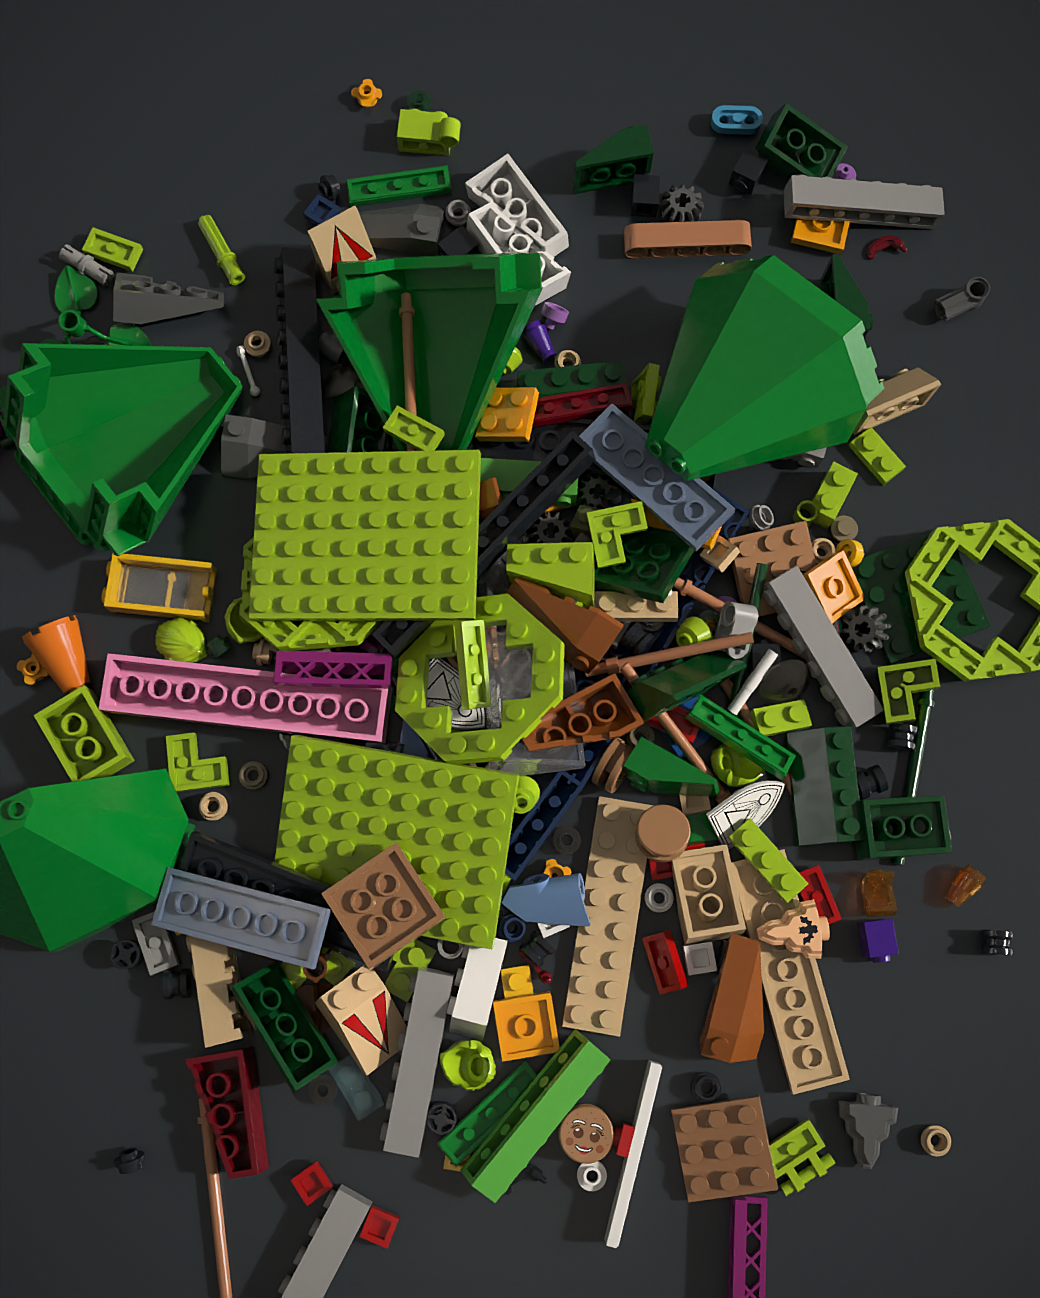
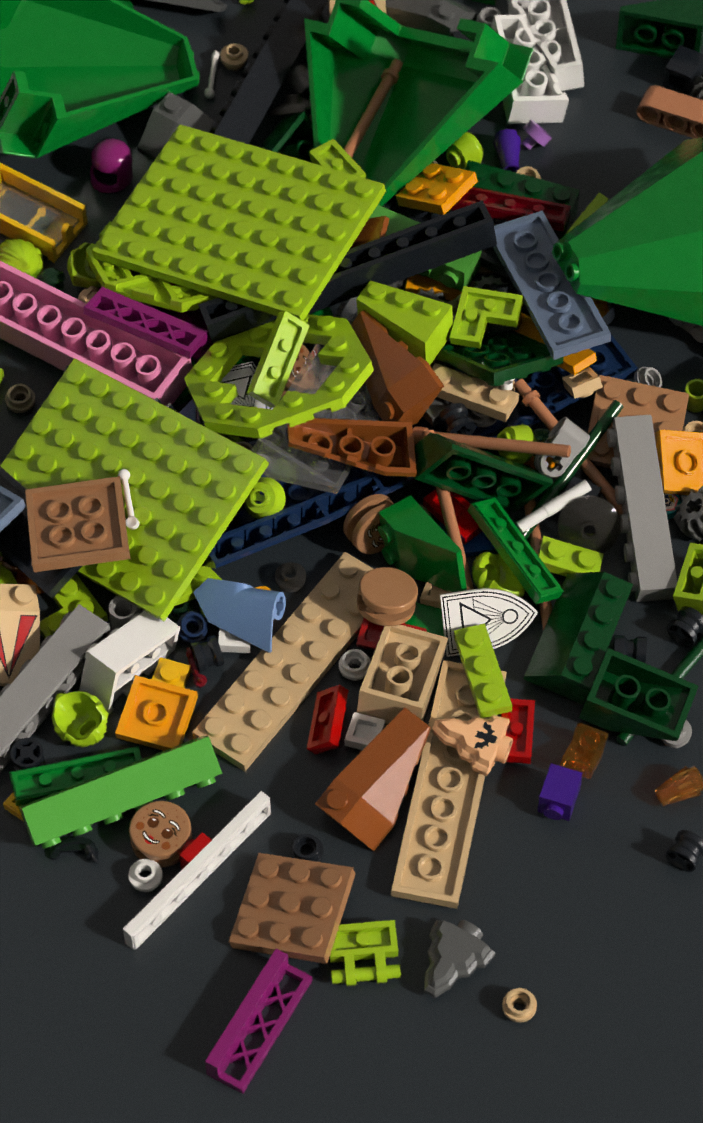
camera: 30 degrees right, 20 degrees down
(210, 504) = (112, 157): none -> magenta helmet
(426, 876) = (131, 522): none -> white hinge

